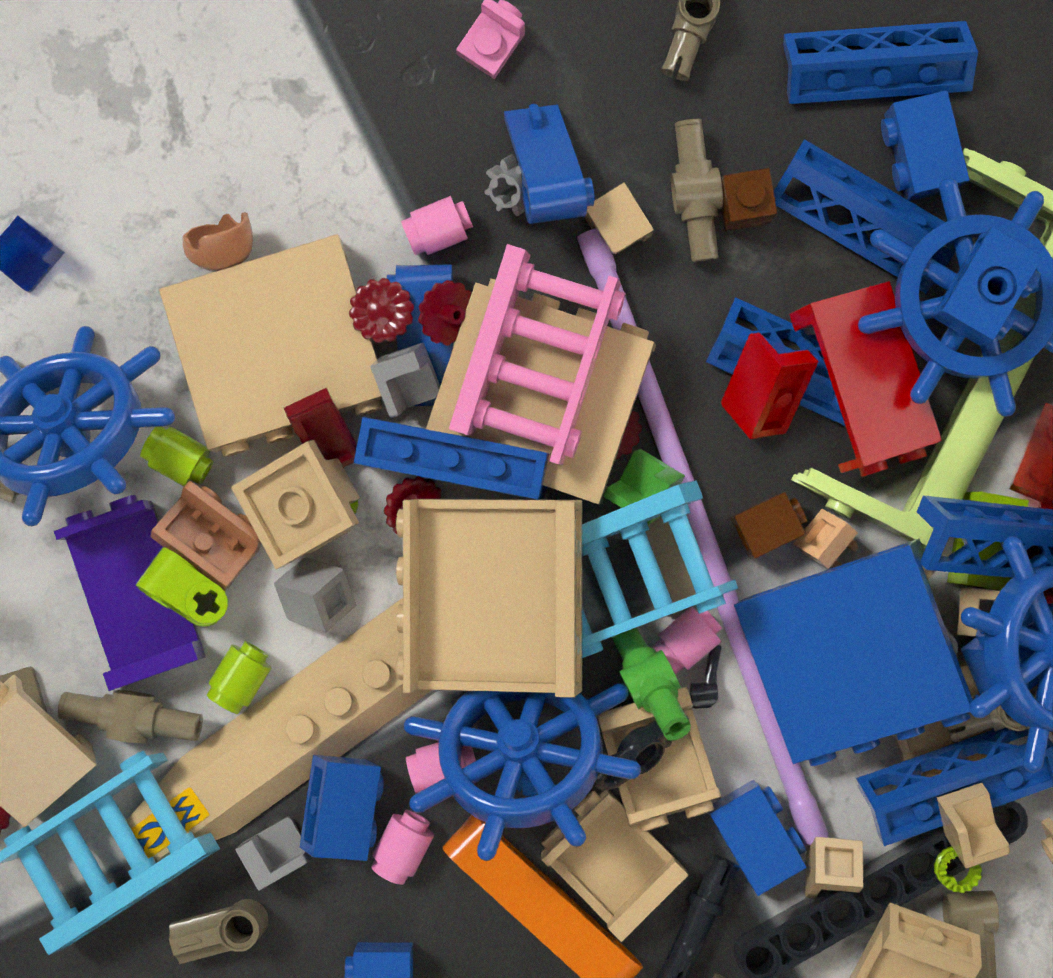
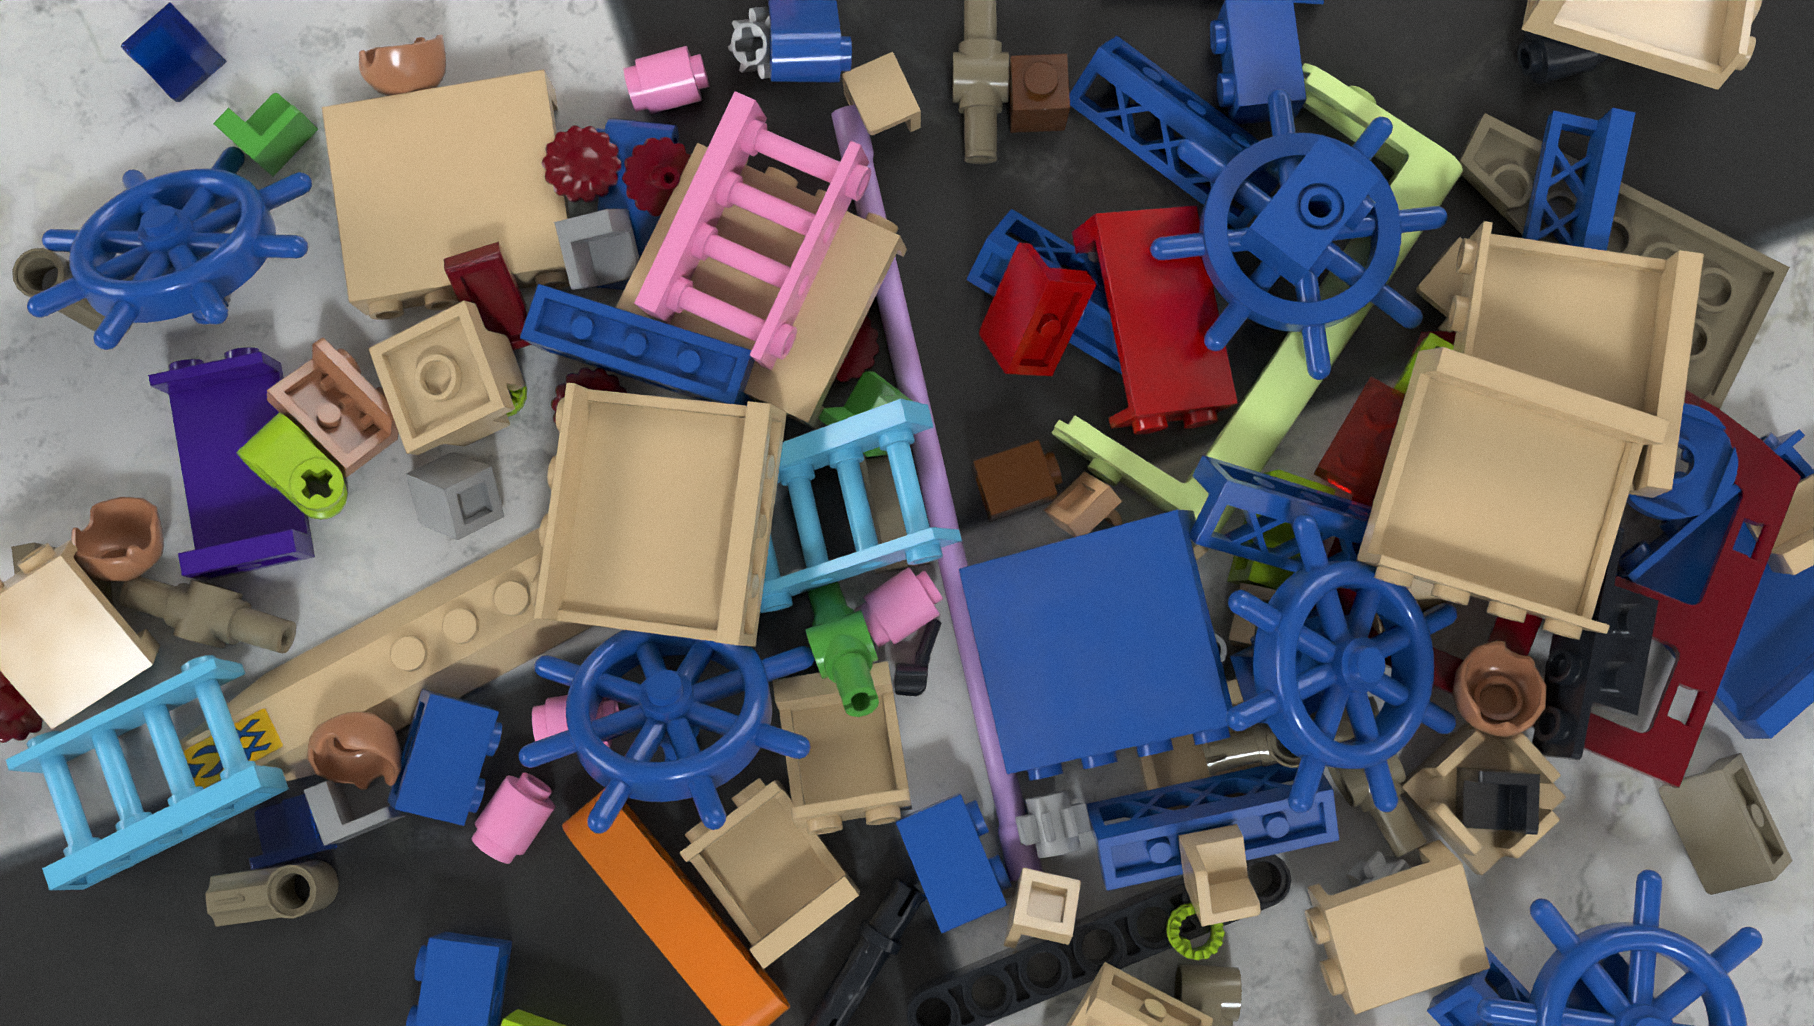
camera: 10 degrees right, 5 degrees down
(50, 666) = (119, 539): none -> nougat hair
(112, 310) = (270, 133): none -> bright green panel
(176, 456) = (314, 308): lime brick -> none
(223, 882) = (287, 833): none -> clear blue panel
(238, 677) = (346, 583): lime brick -> none
(270, 811) = (355, 749): none -> nougat hair
(643, 745) = (827, 745): black piece -> none
(834, 798) = (1053, 824): none -> light grey gear

